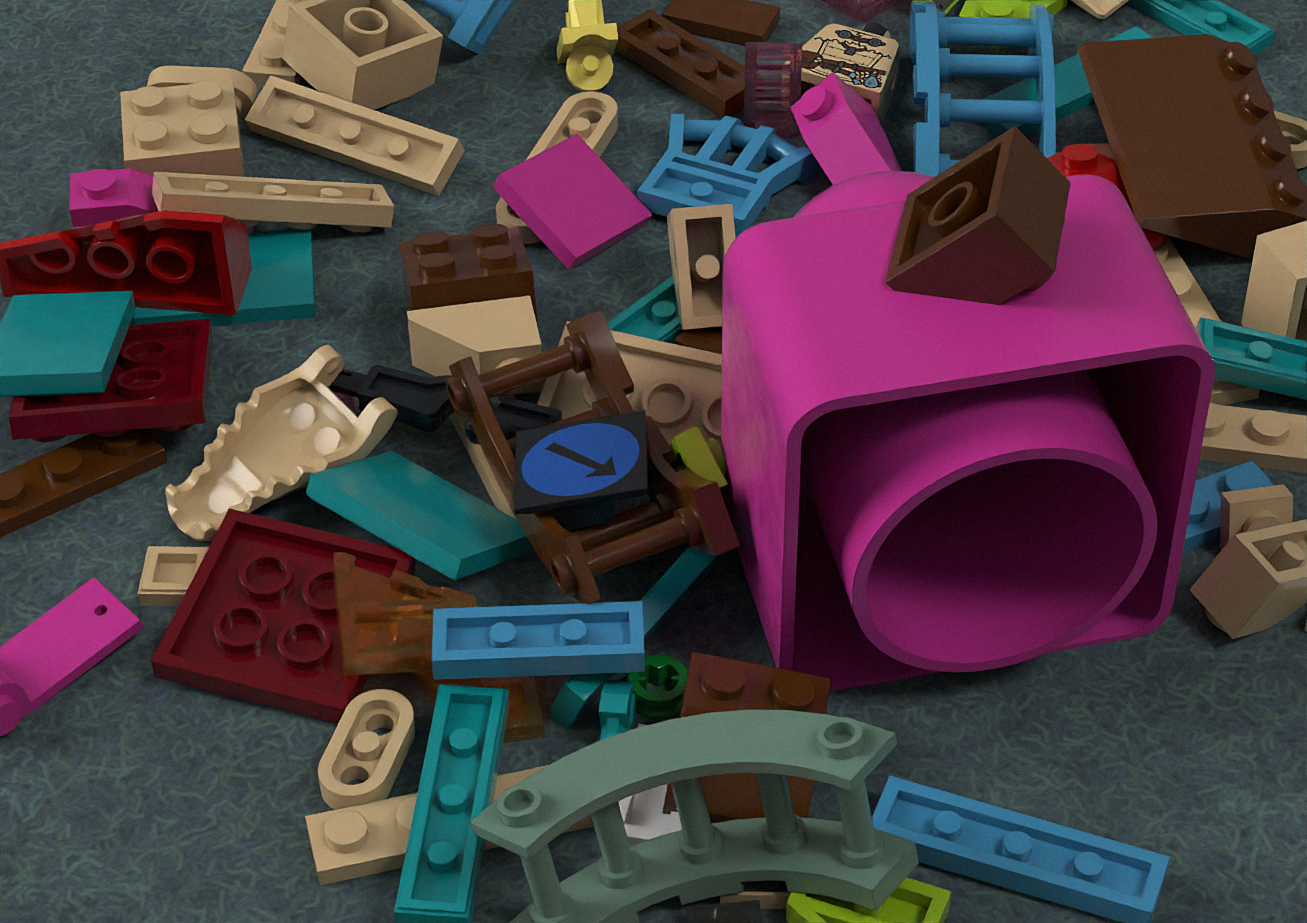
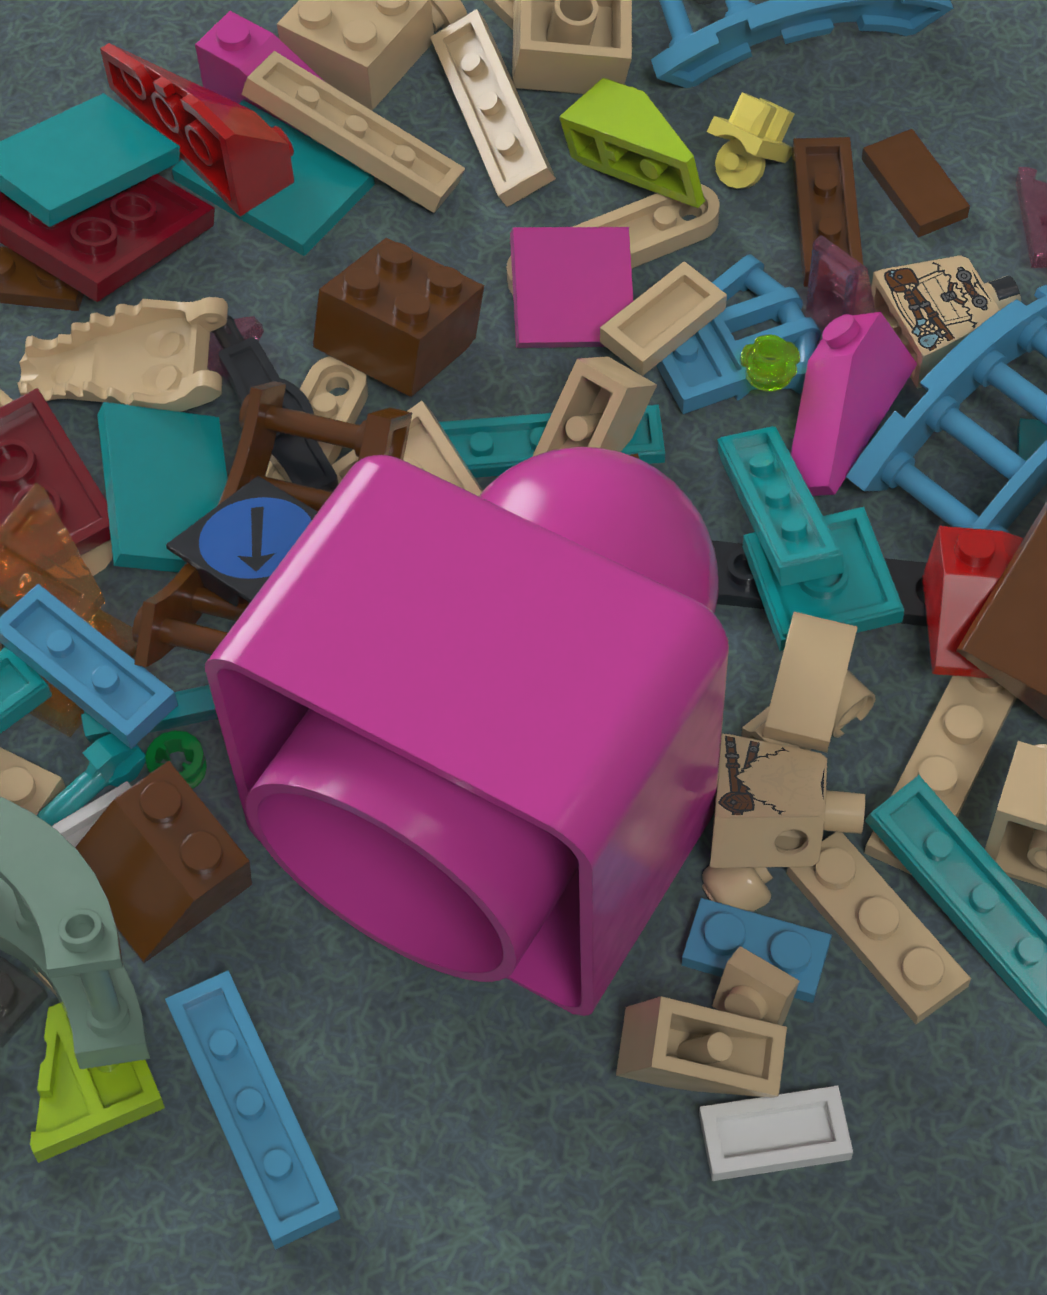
camera: 45 degrees right, 15 degrees up
(488, 331) = (345, 372): tan slope -> none
(509, 87) = (628, 138): none -> lime slope
(667, 174) = (663, 318): none -> tan tile
(780, 158) = (766, 373): none -> clear neon green plate
(983, 226) = (511, 601): reddish brown slope -> none

